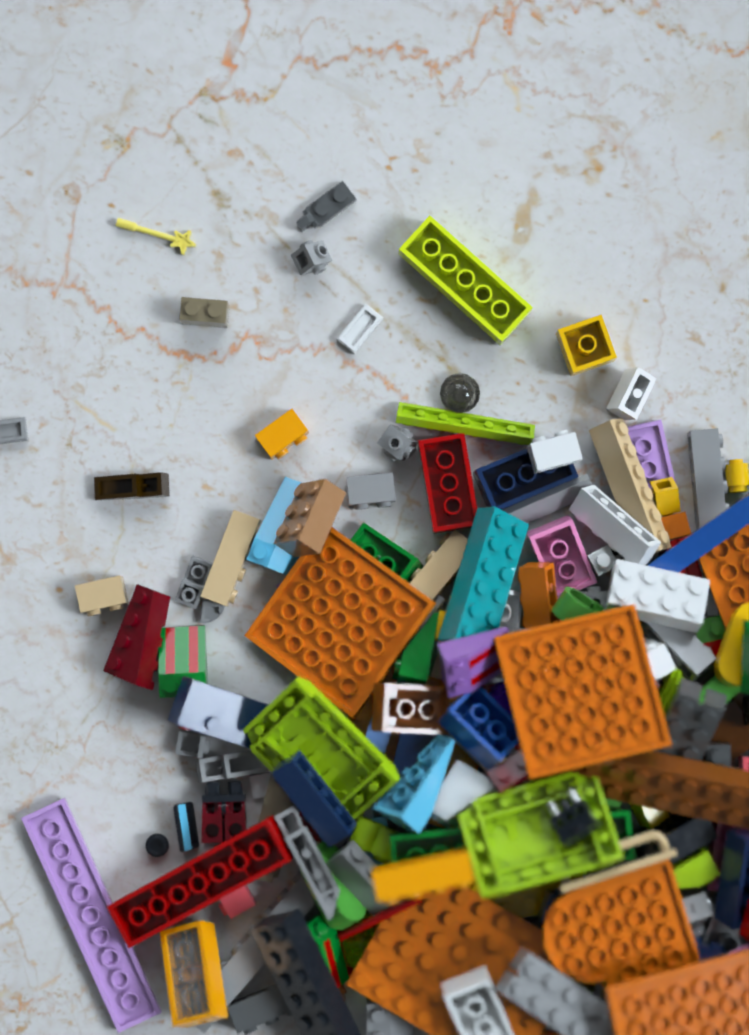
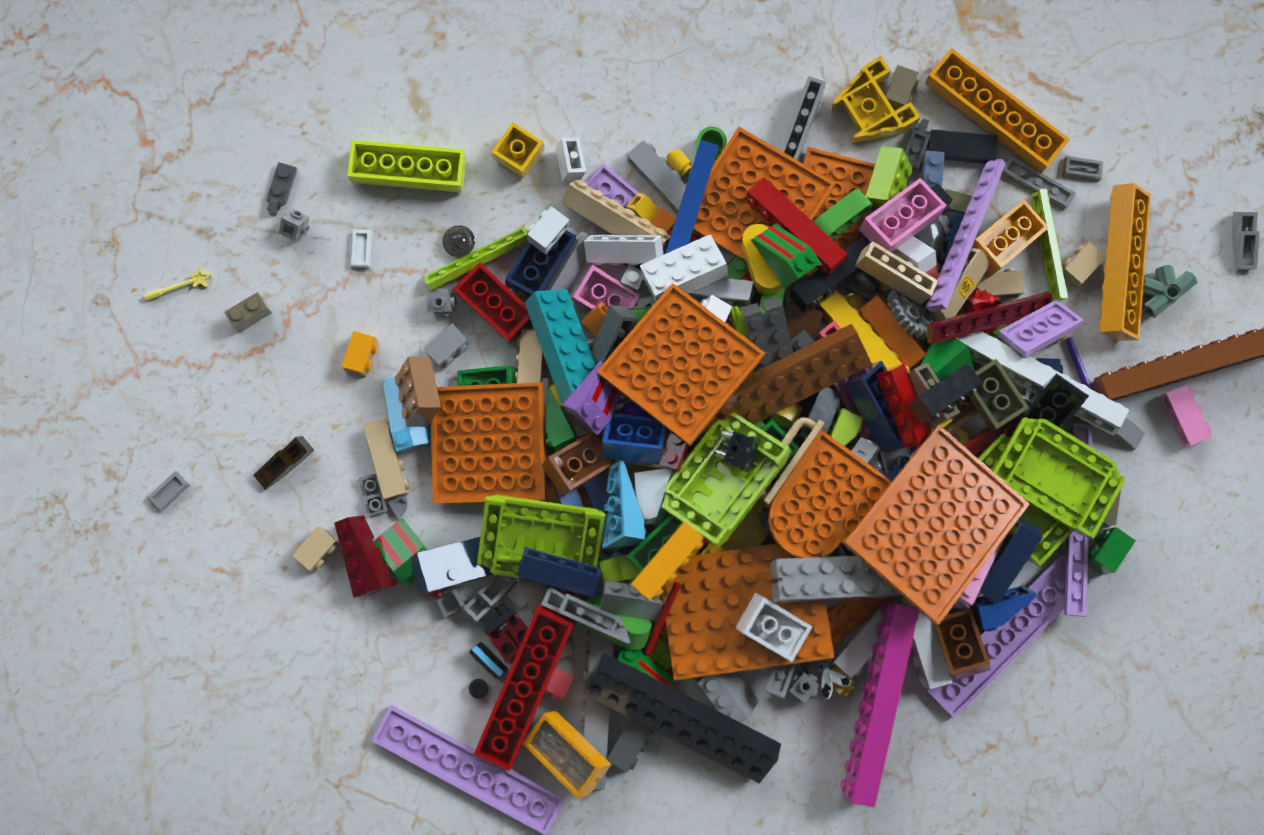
camera: 40 degrees left, 5 degrees down
(539, 607) = (614, 329): none -> dark grey brick

